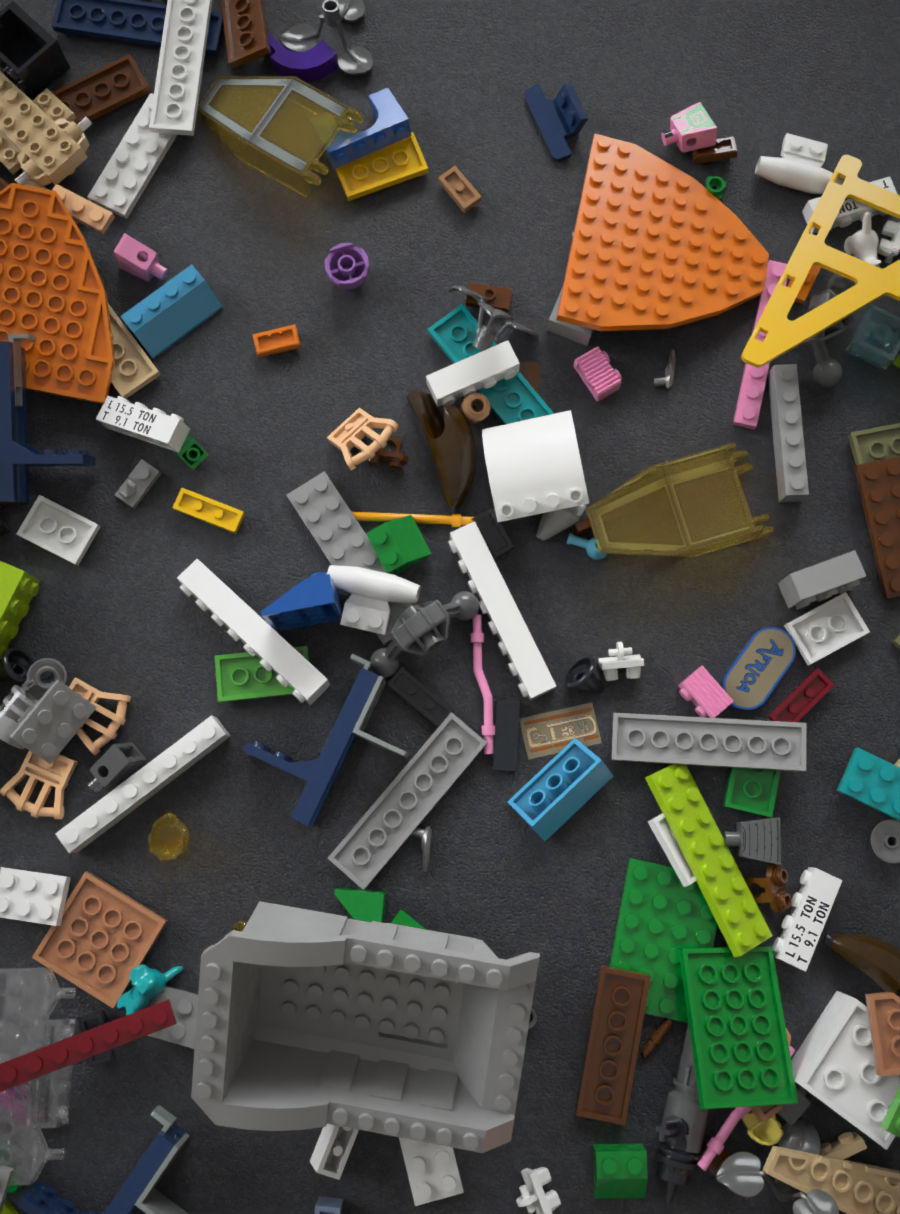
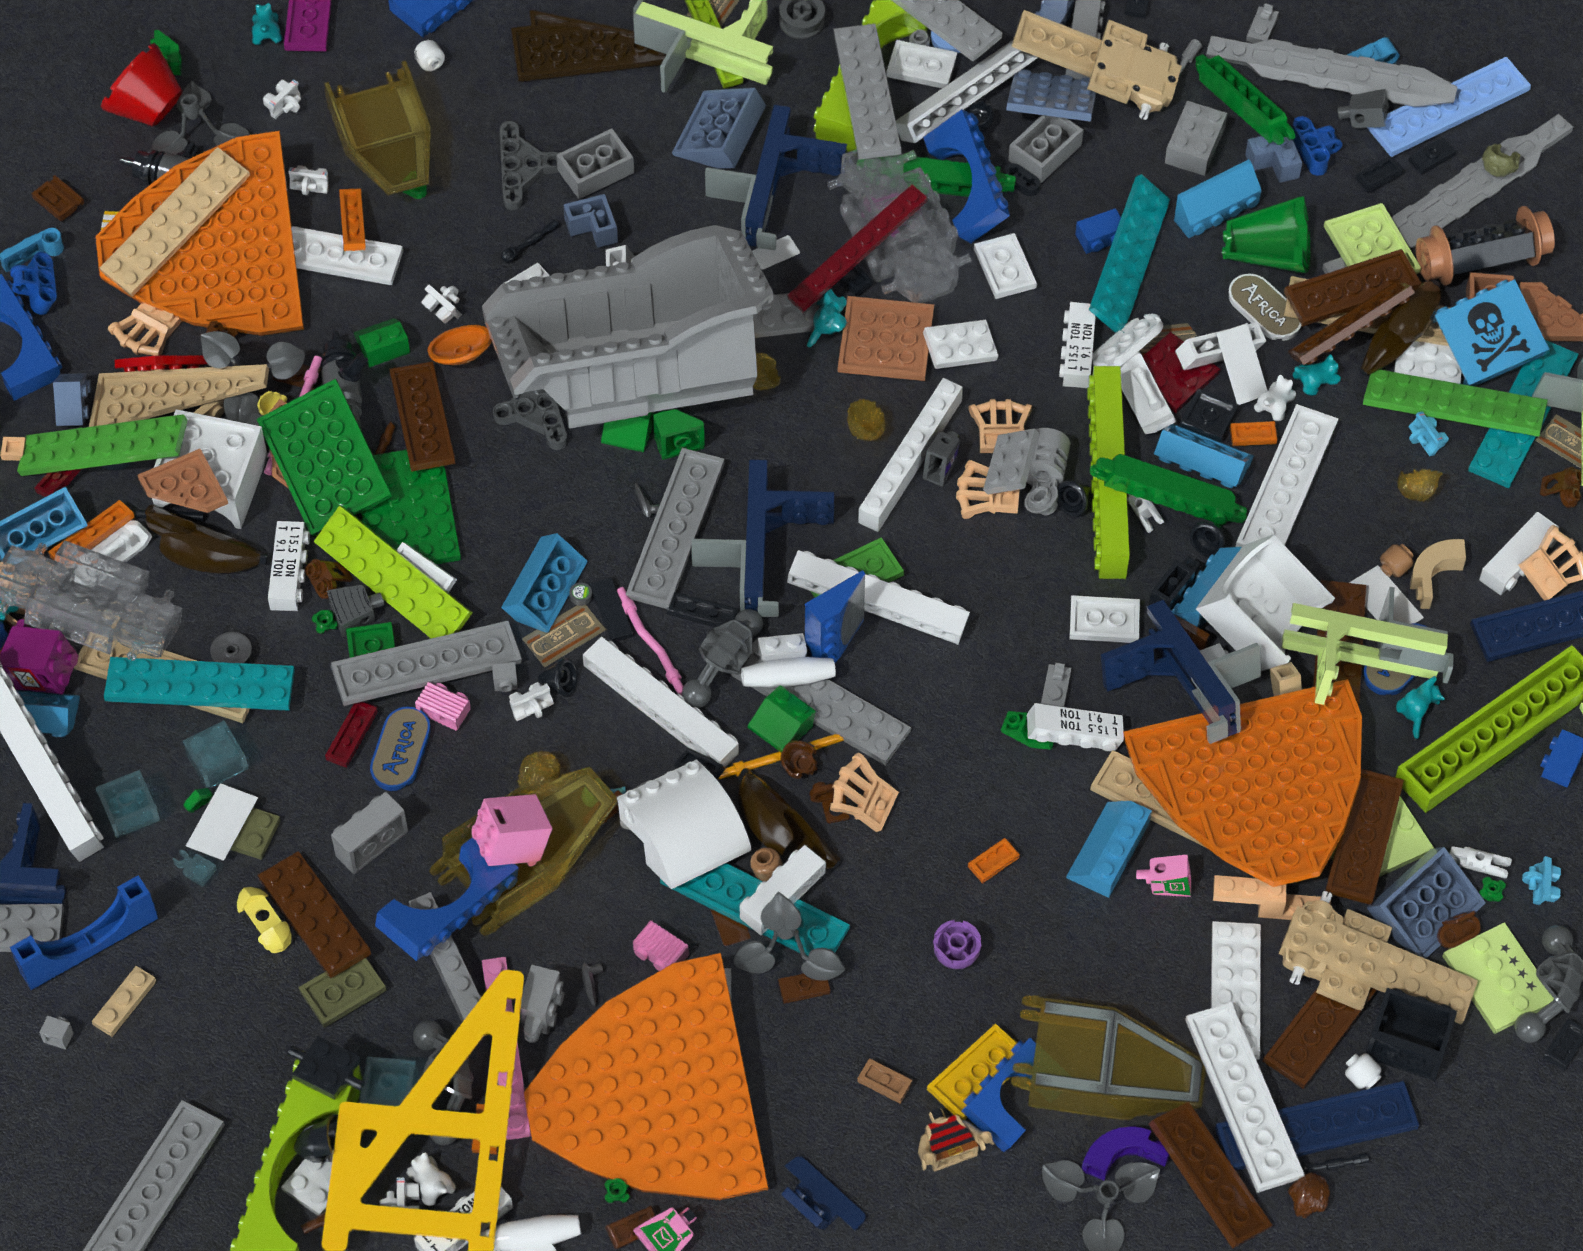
camera: 155 degrees right, 20 degrees down
(77, 47) = (1363, 1071): none -> white head
(171, 1101) = (784, 249): none -> white sticker
(208, 510) = (975, 686): yellow plate -> none
(401, 501) = (798, 758): none -> reddish brown hair
(433, 117) = (950, 1141): none -> torso
(528, 765) = (580, 594): none -> tile
(544, 1122) = (459, 345): none -> orange dish
(636, 699) = (505, 676): none -> light grey plate
(639, 587) = (538, 767): none -> clear yellow hair
(689, 508) = (511, 830): none -> bright pink container
(722, 357) = (539, 1001): none -> light grey hinge
(793, 835) = (324, 615): none -> green plate
(814, 444) = (421, 929): none -> blue arch
(826, 628) = (344, 798): white plate -> none

